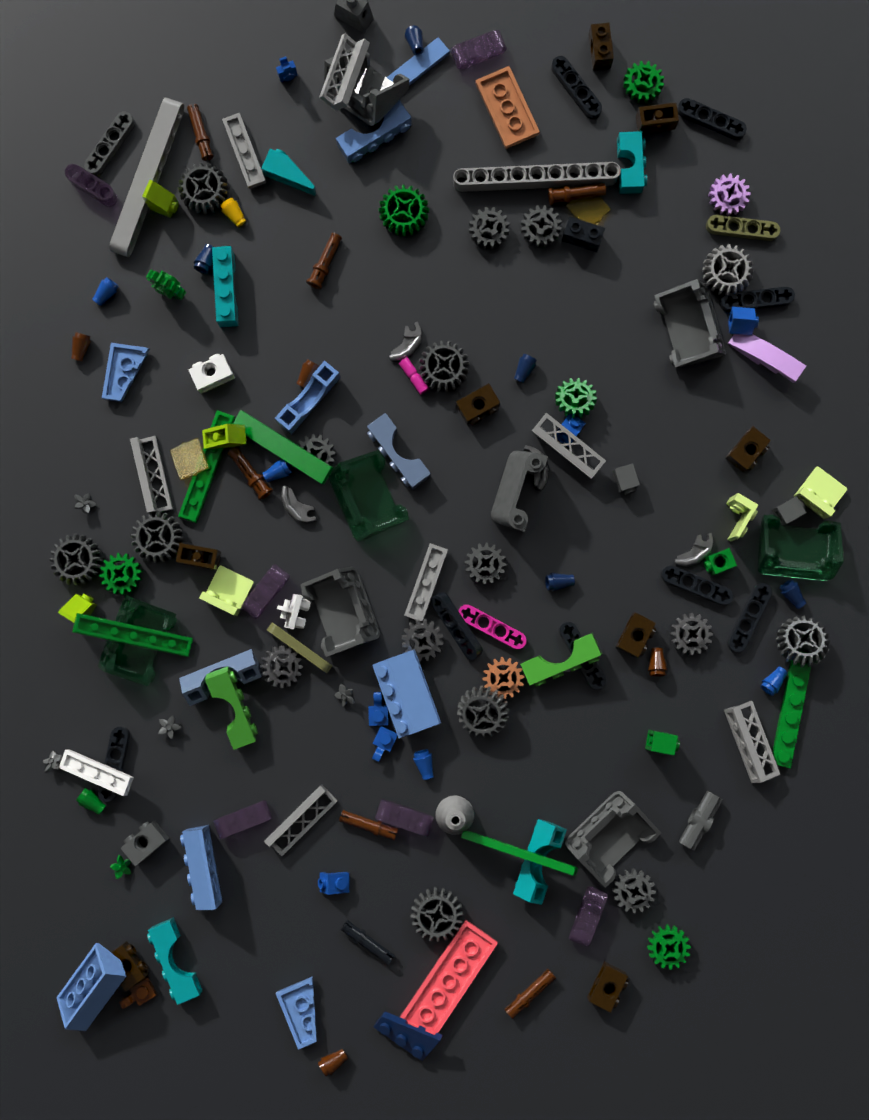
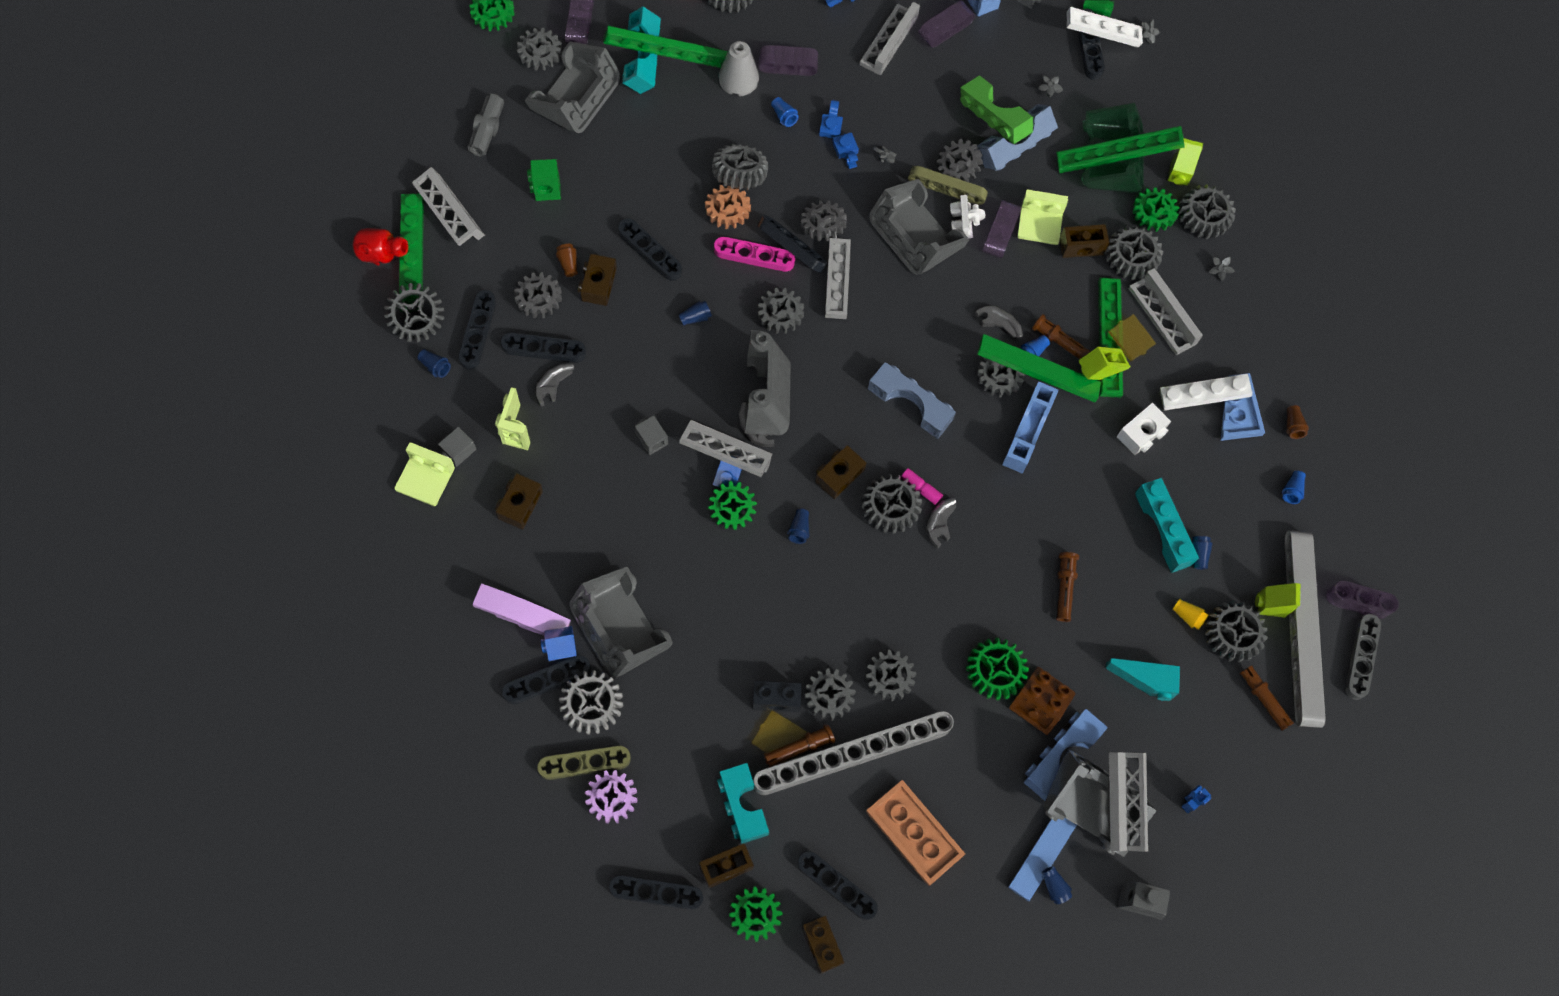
camera: 155 degrees right, 15 degrees down
(146, 391) = (1206, 392): none -> white plate
(166, 284) = (1232, 504): green gear -> none
(244, 151) = (1208, 690): light grey plate -> none
(307, 370) = (1040, 458): reddish brown cone -> none
(365, 496) = (927, 344): clear green windscreen -> none
(368, 825) = (825, 47): reddish brown pin -> none
(374, 177) = (1042, 700): none -> reddish brown bracket
(406, 693) = (824, 163): medium blue slope -> none
(478, 49) = (974, 897): clear purple beam -> none
(539, 669) = (691, 222): bright green arch -> none
(727, 558) = (523, 383): green brick -> none
(773, 682) = (437, 271): blue cone -> none
(800, 550) = (437, 410): clear green windscreen -> none
(821, 717) = (378, 246): none -> red piece

